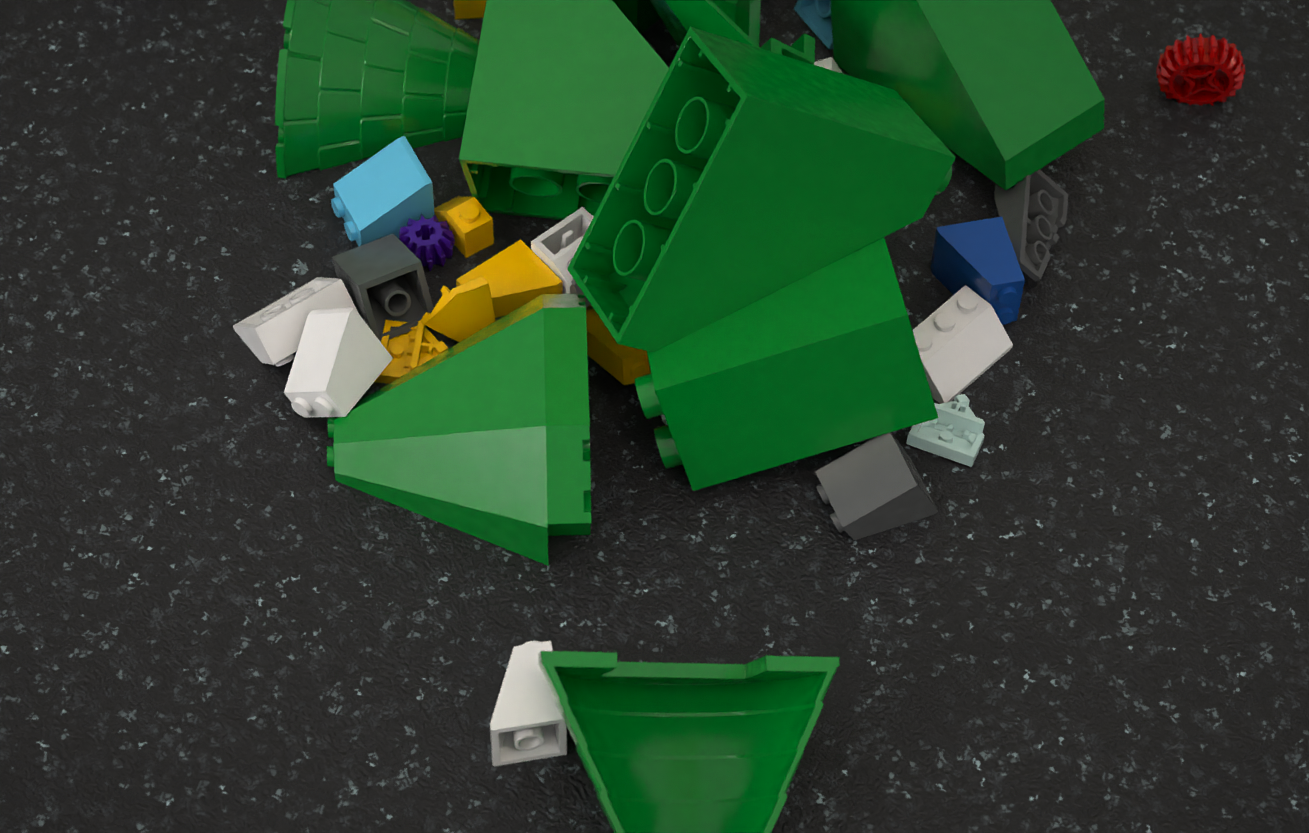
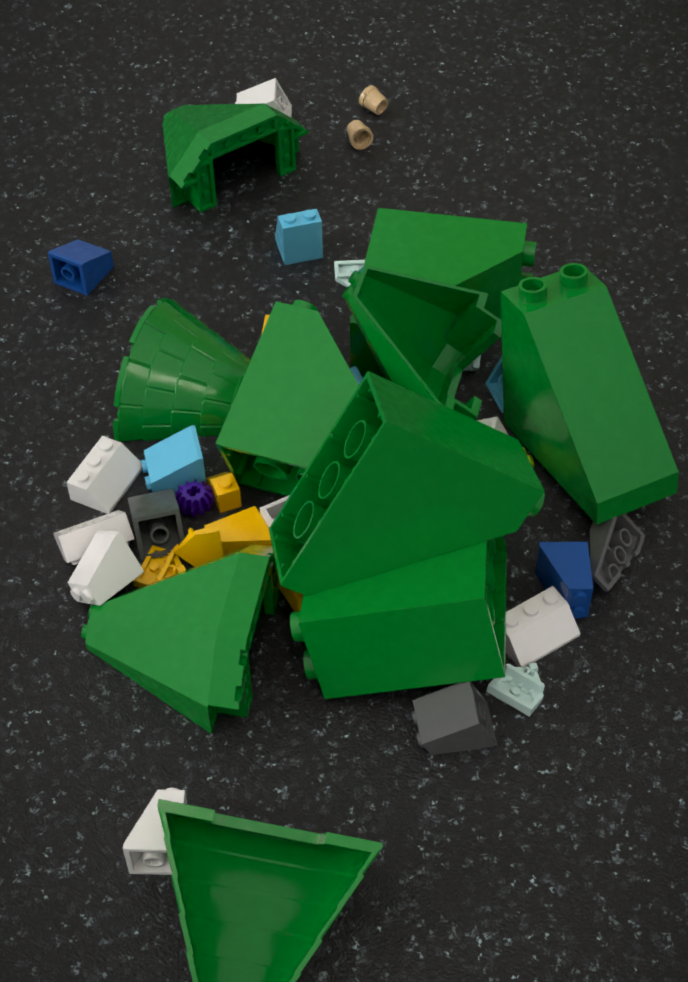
camera: 15 degrees right, 5 degrees down
(284, 230) = (104, 475): none -> white slope

